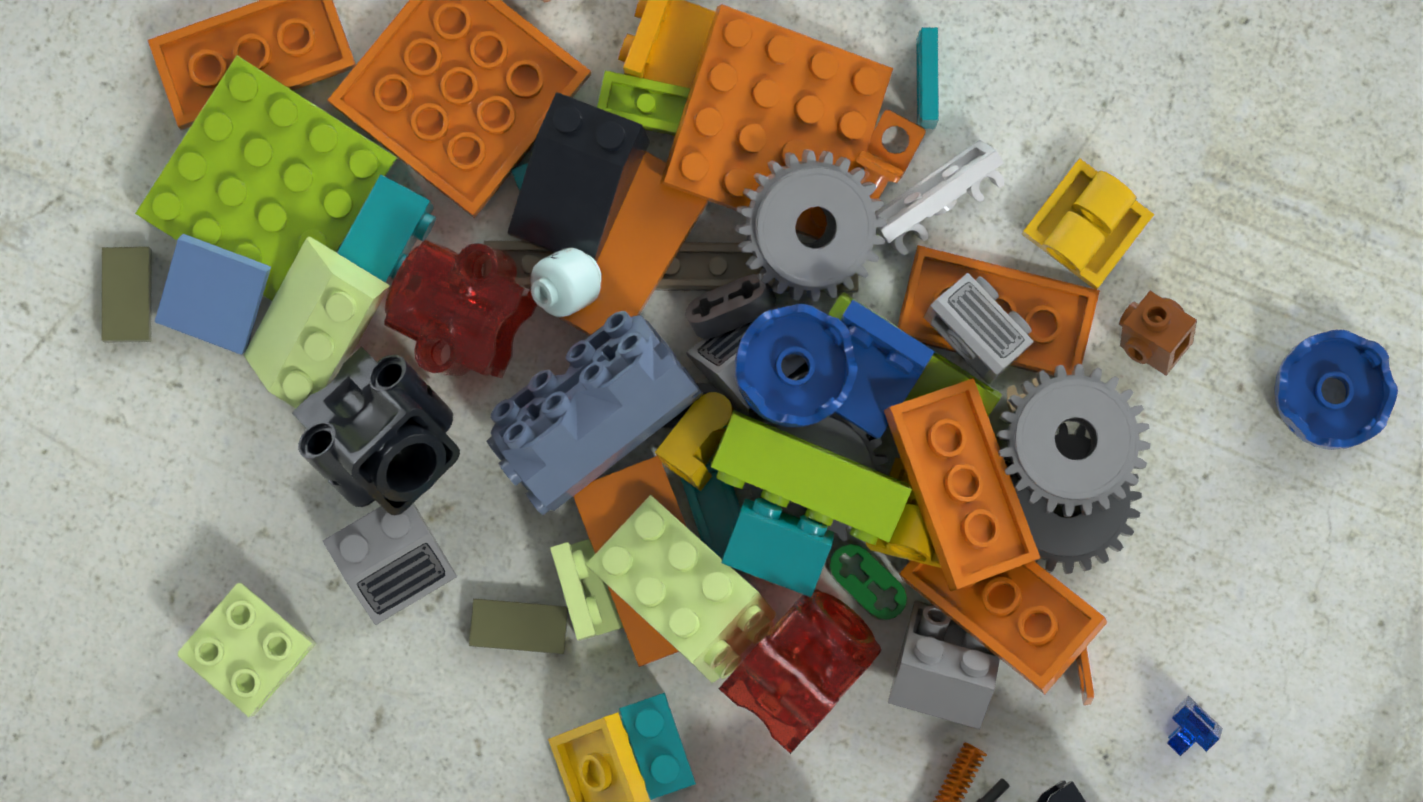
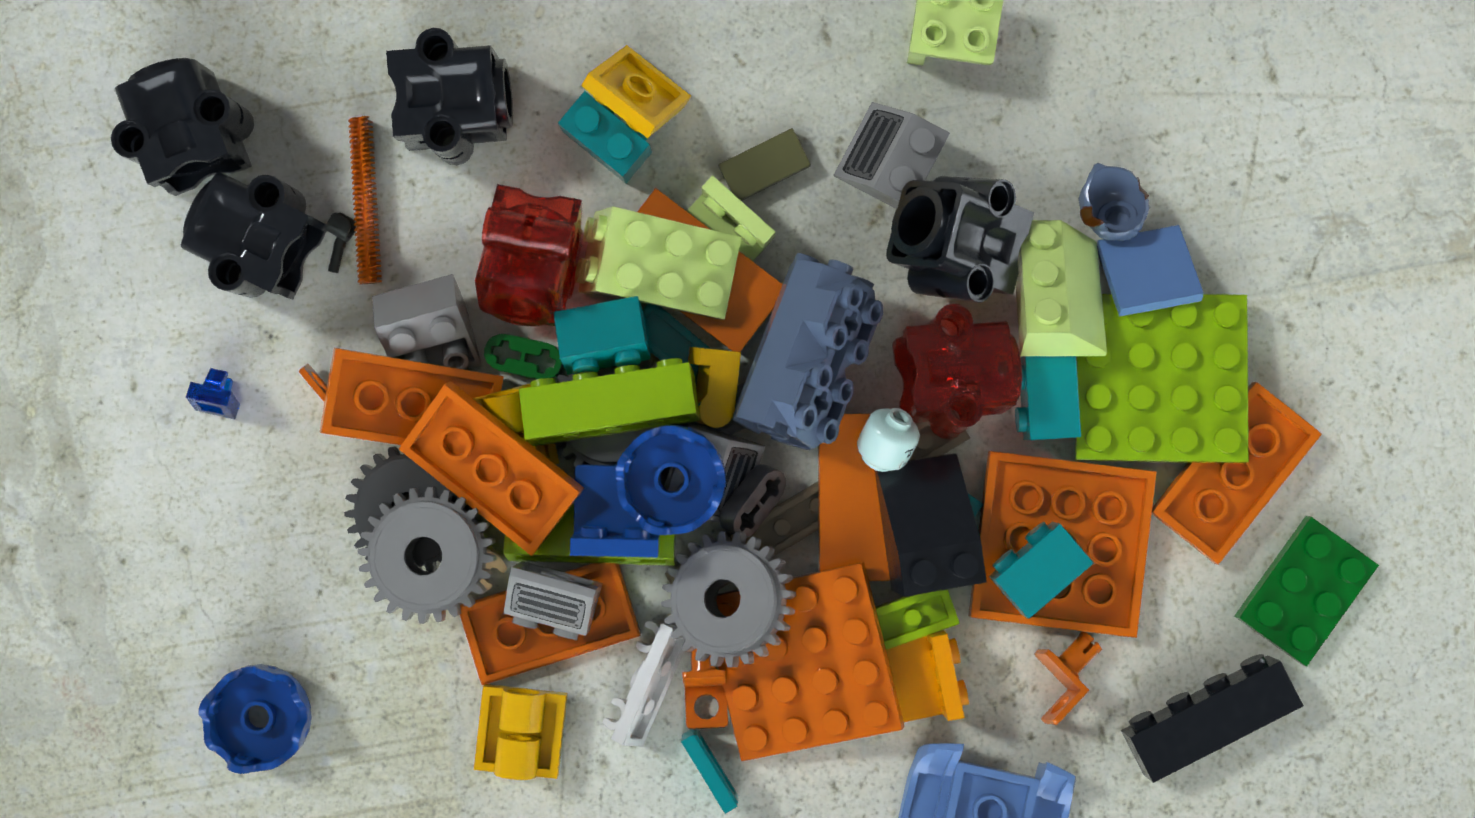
camera: 150 degrees right, 5 degrees up
(126, 294) = (1213, 233): olive tile -> none
(206, 379) = (1113, 203): none -> sand blue hair
(497, 75) = (1039, 568): none -> teal brick
(1156, 332) = (417, 679): dark orange brick -> none

